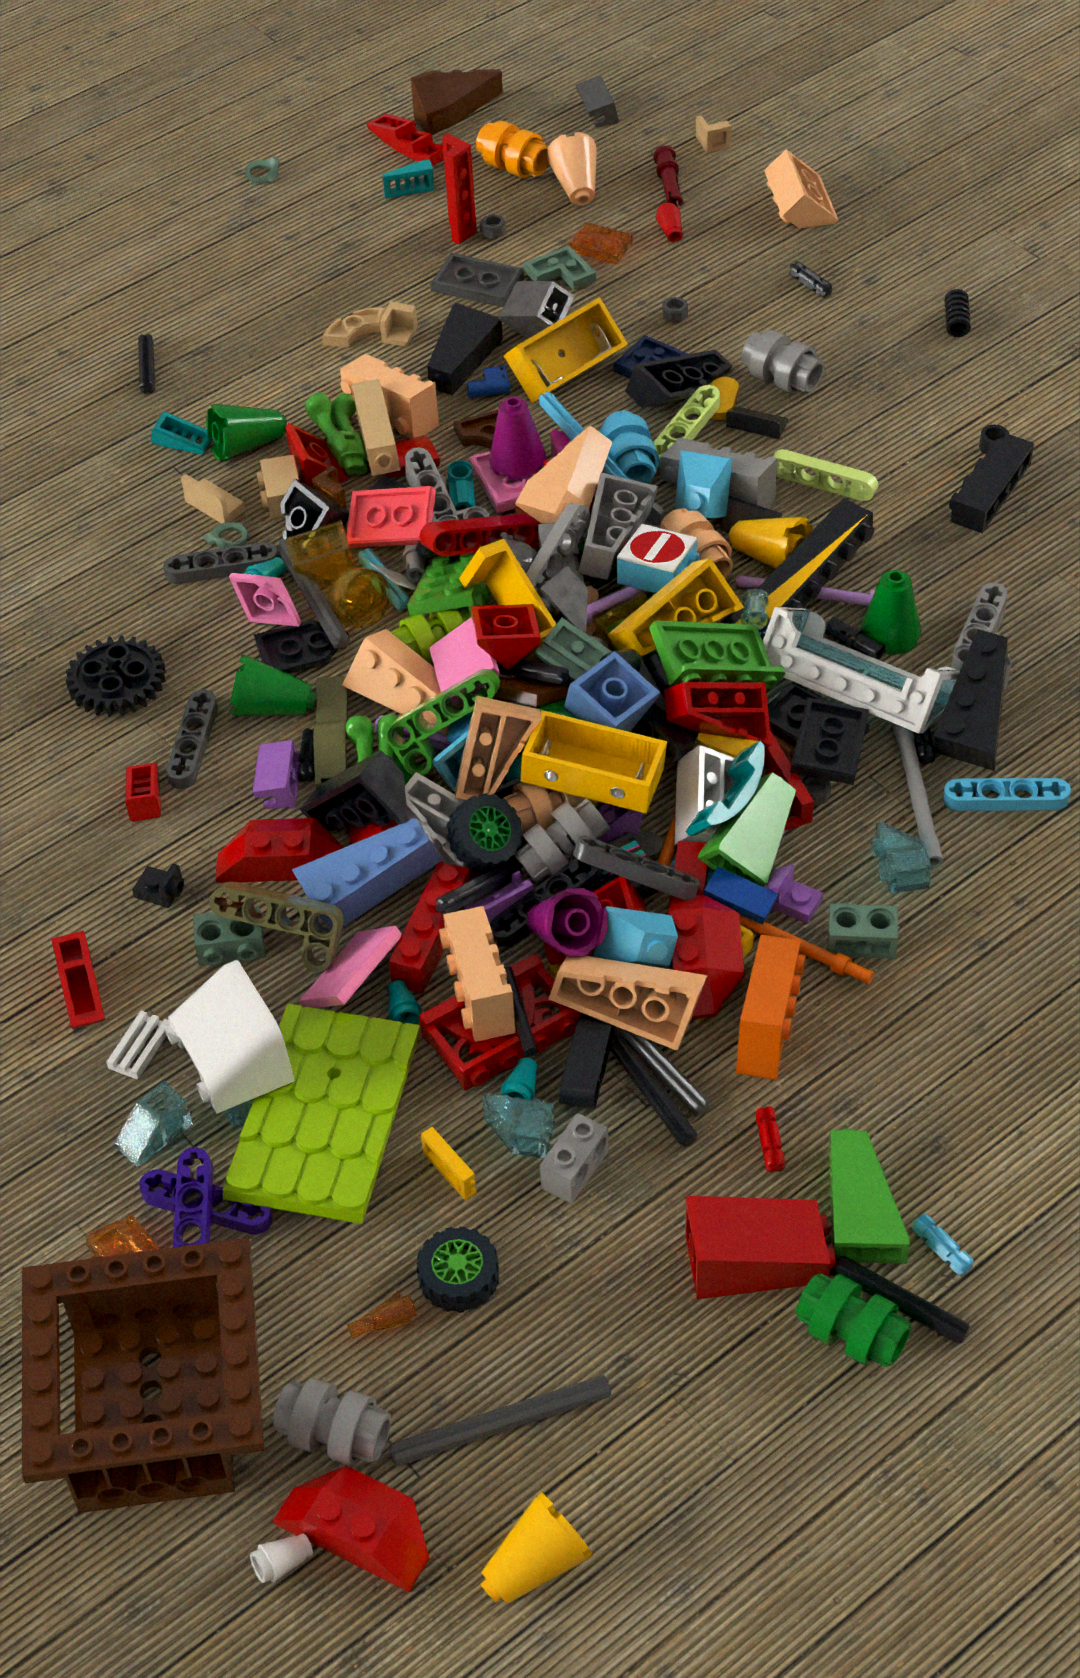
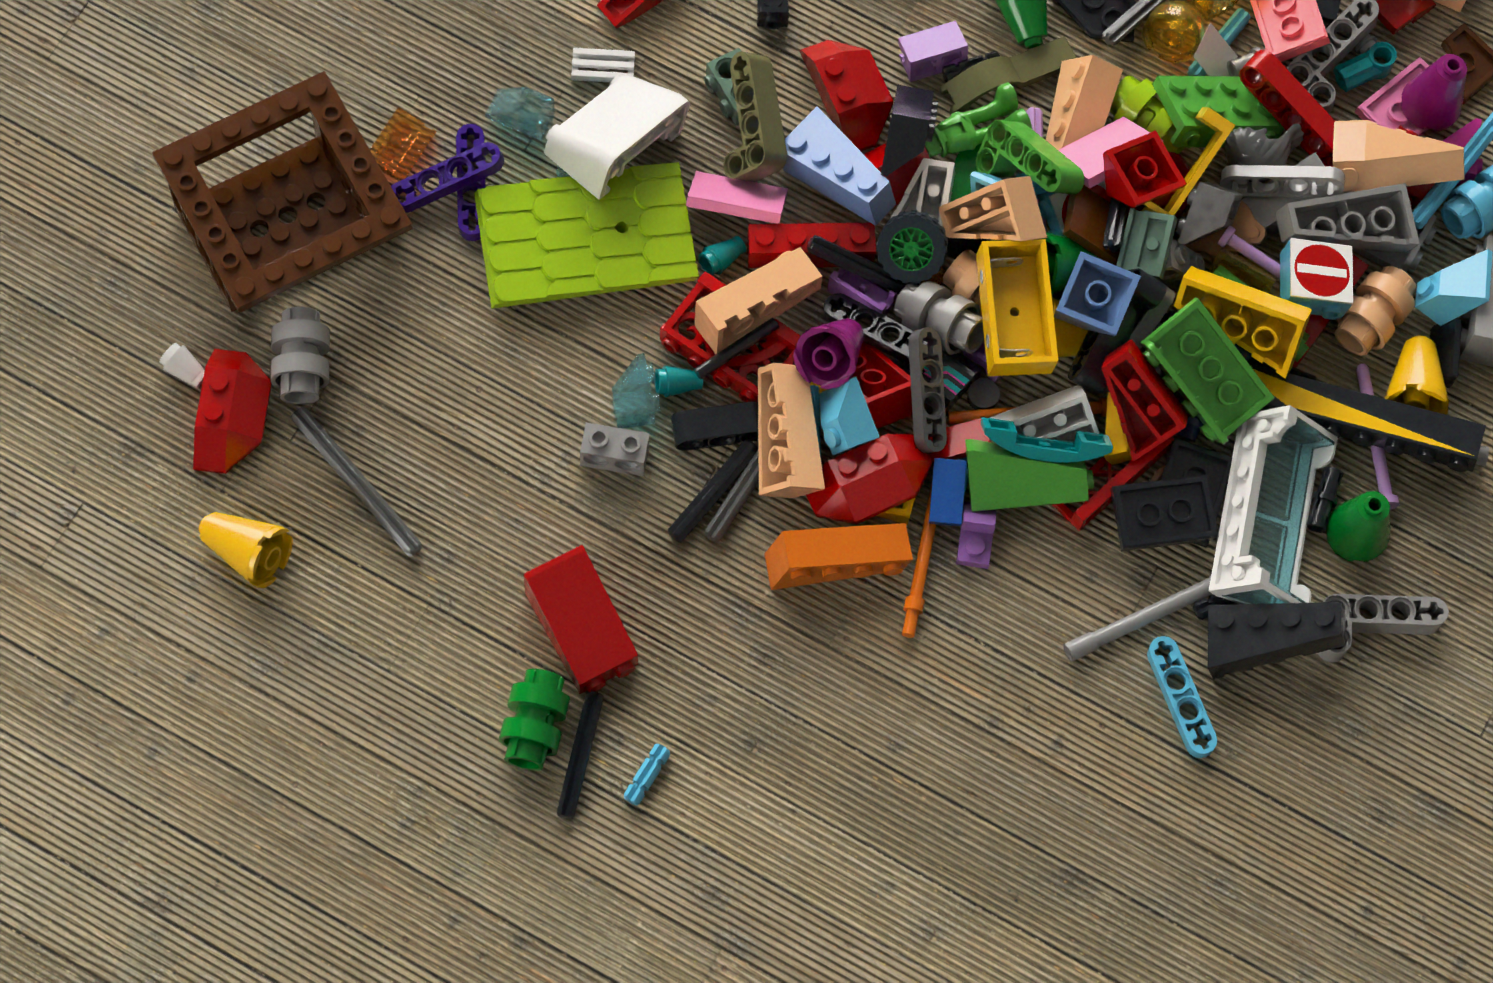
camera: 60 degrees right, 20 degrees up
(392, 1313) = (419, 364): clear orange cone -> none
(448, 1163) = (573, 352): yellow tile -> none
(458, 1269) = (477, 398): black wheel -> none
(755, 606) = (1294, 389): clear light blue bush -> none
(770, 1139) = (700, 602): red axle -> none
(818, 789) = (1106, 521): dark grey tile -> none
(862, 1206) = (659, 693): bright green slope -> none
(863, 930) = (949, 612): sand green brick -> none
(902, 859) = (1052, 623): clear light blue slope -> none

